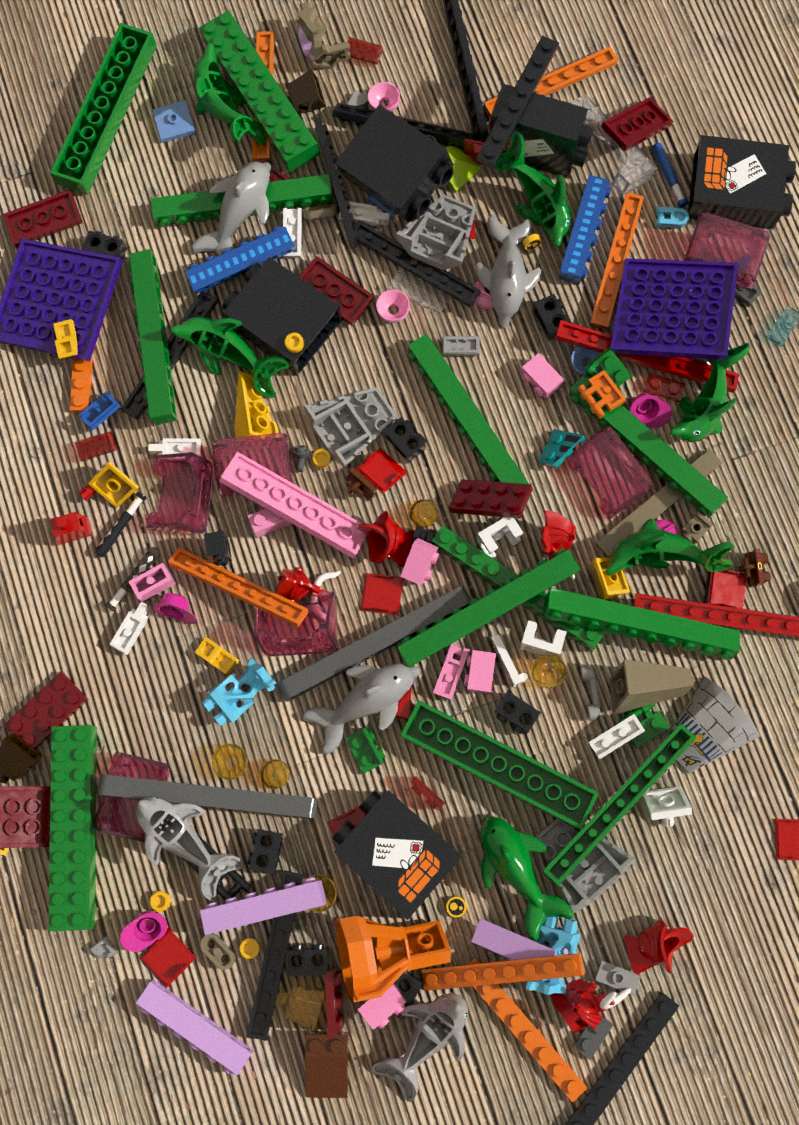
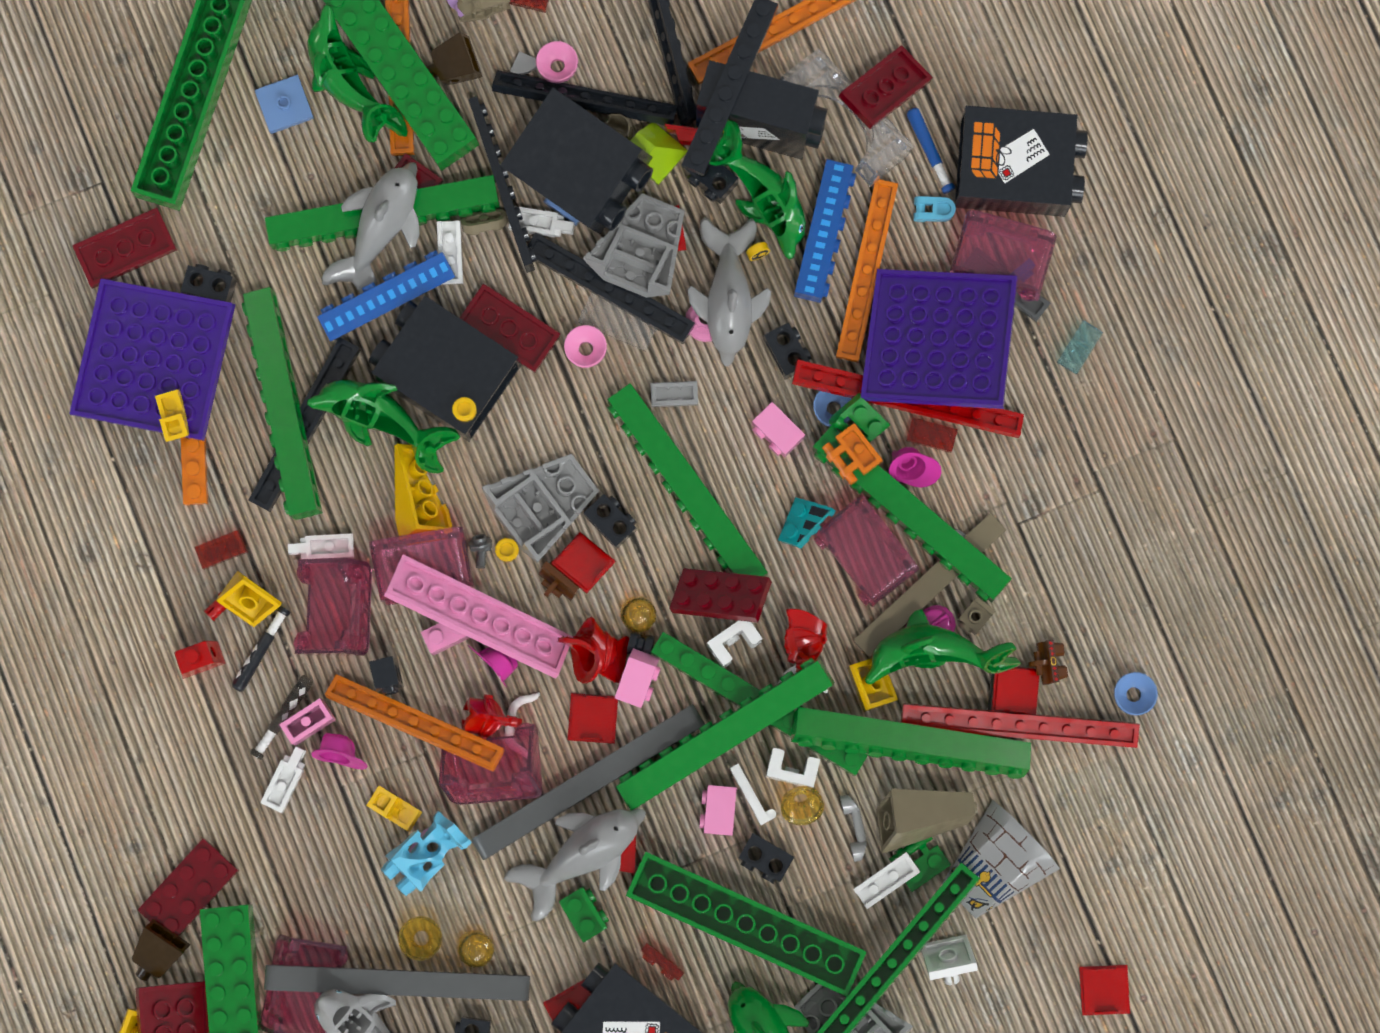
camera: 10 degrees left, 5 degrees up
(99, 410) = (221, 504): blue hinge -> none
(308, 542) = (499, 662): none -> dark pink piece
(451, 672) = (683, 812): bright pink plate -> none
(501, 183) = (706, 182): none -> black brick
(704, 413) = (982, 469): green animal -> none

